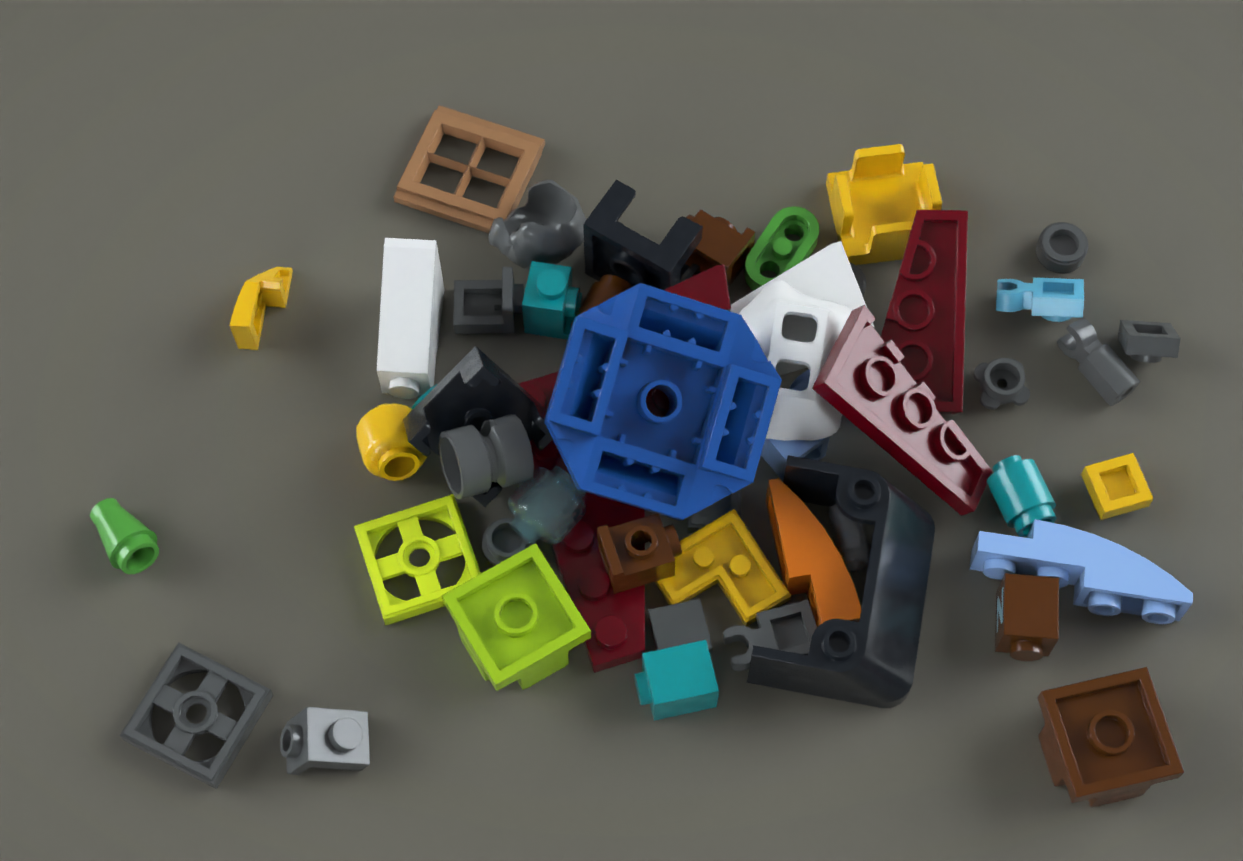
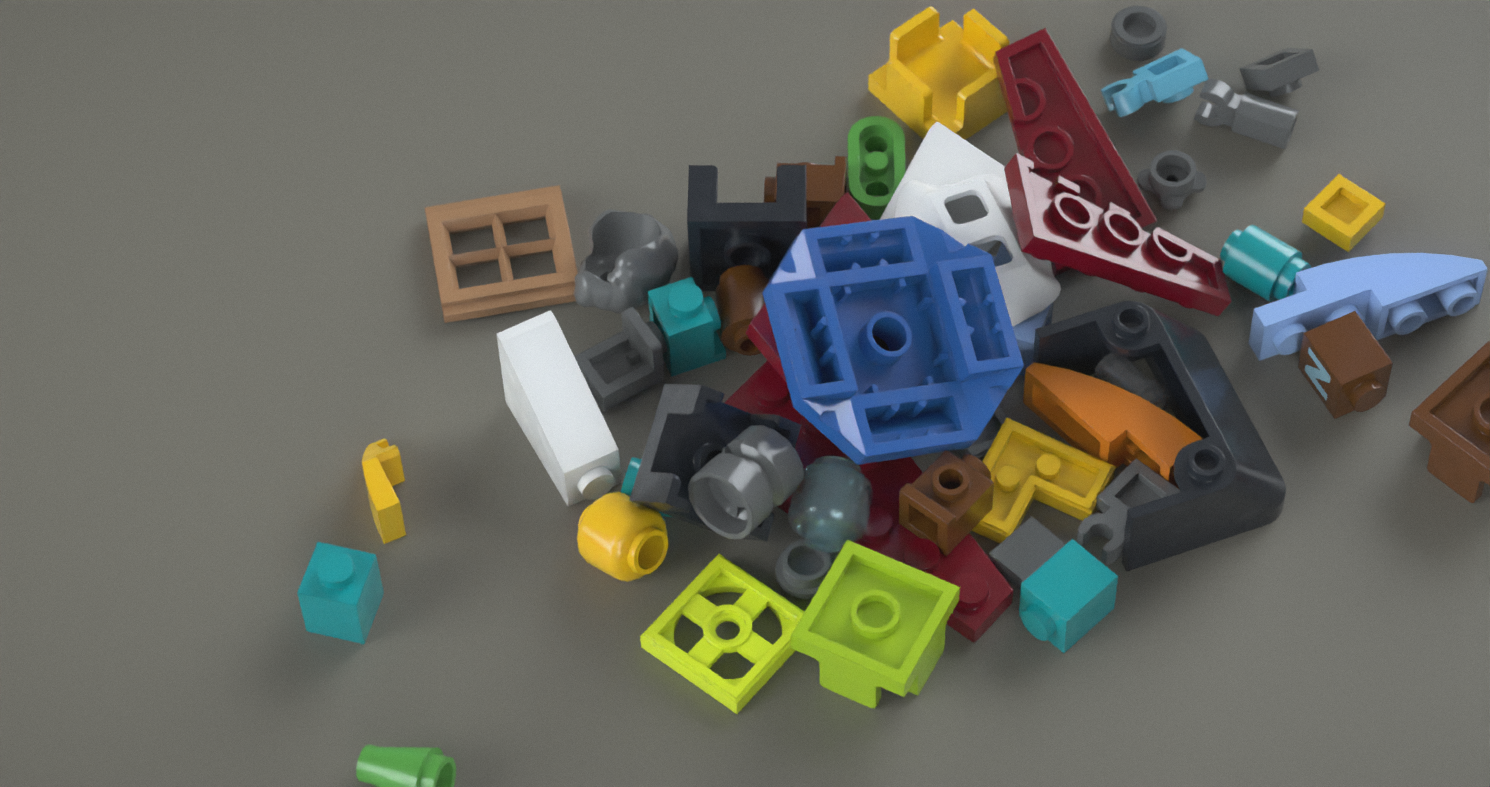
camera: 30 degrees left, 10 degrees down
(170, 371) = (340, 592): none -> teal brick

